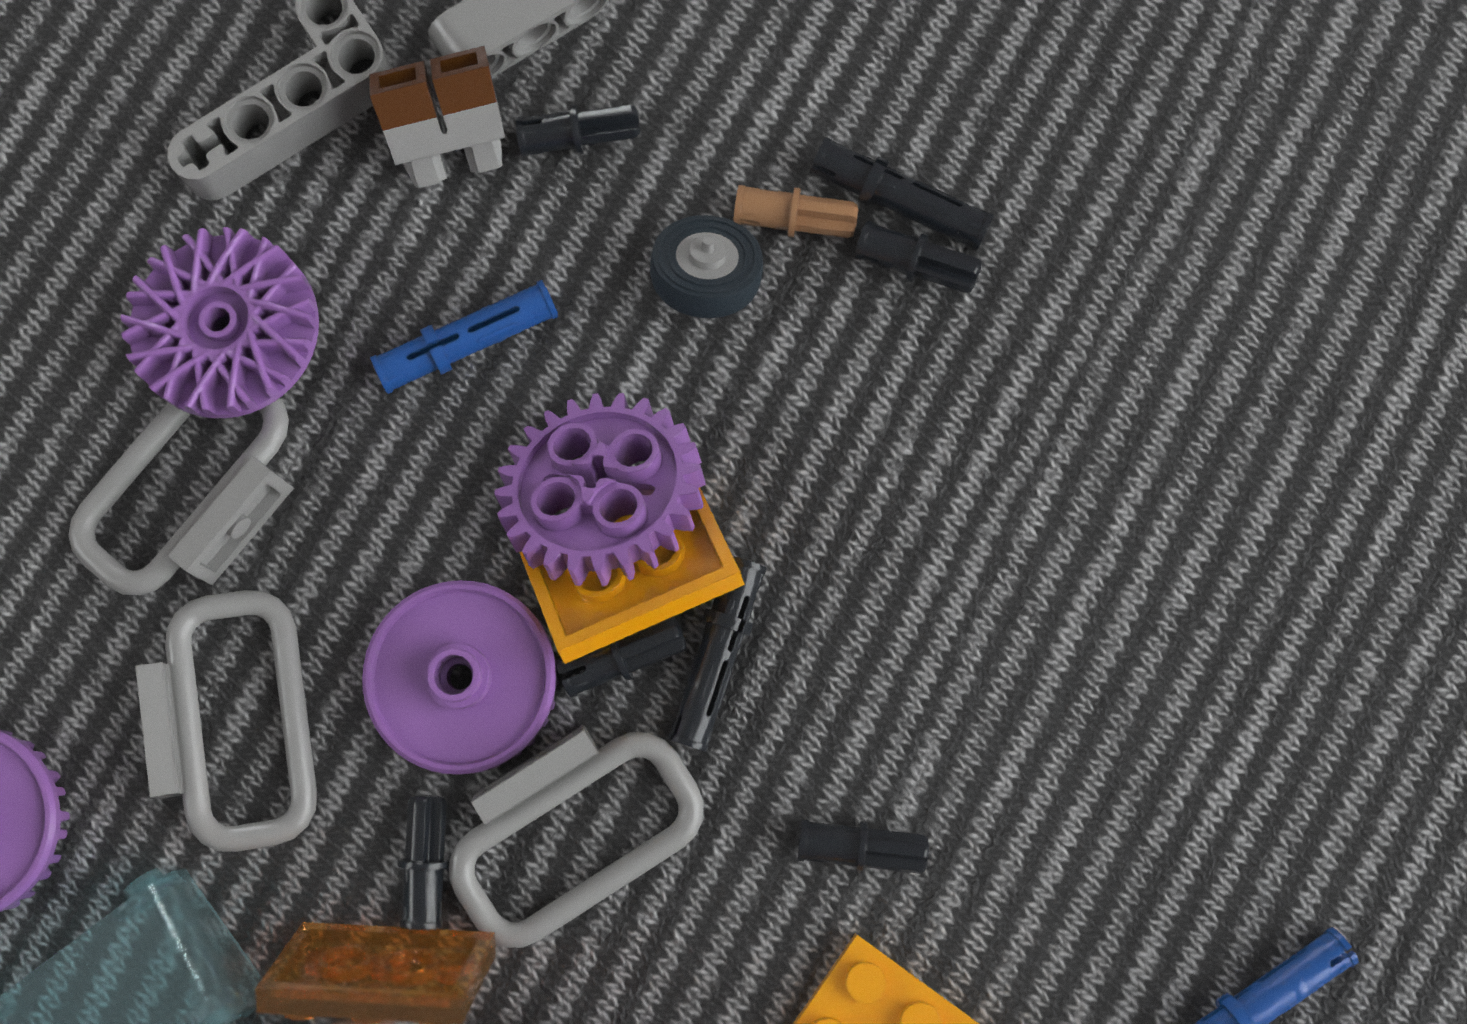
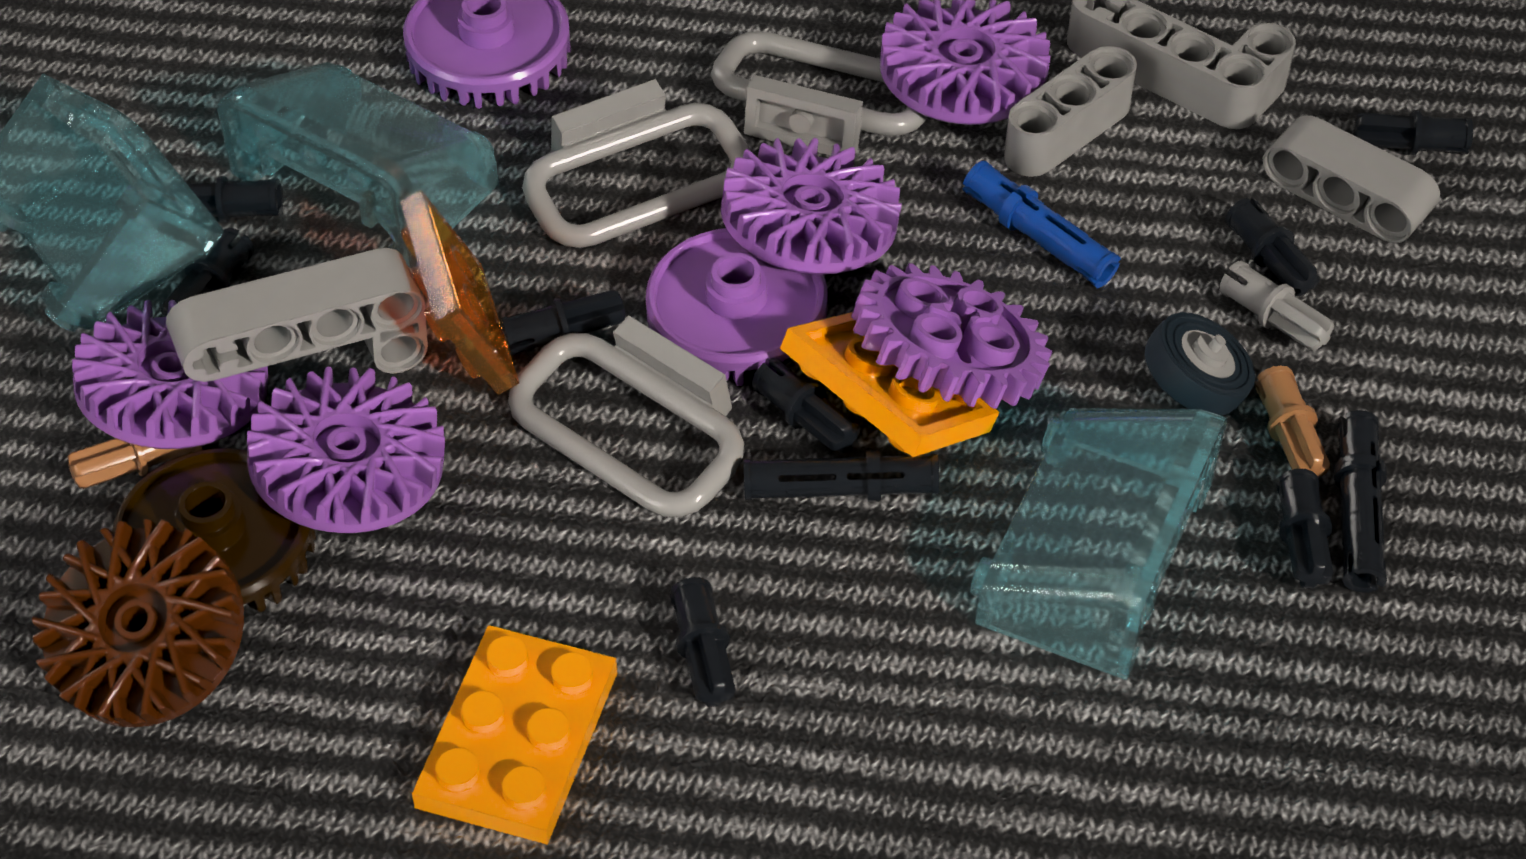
camera: 70 degrees right, 30 degrees down
(310, 219) = (1069, 111): none -> light grey beam
(345, 540) = (809, 208): none -> medium lavender wheel
(413, 124) = (1226, 131): hips -> none
(654, 160) = (1277, 306): none -> light grey axle
(873, 435) = (1099, 531): none -> clear light blue windscreen

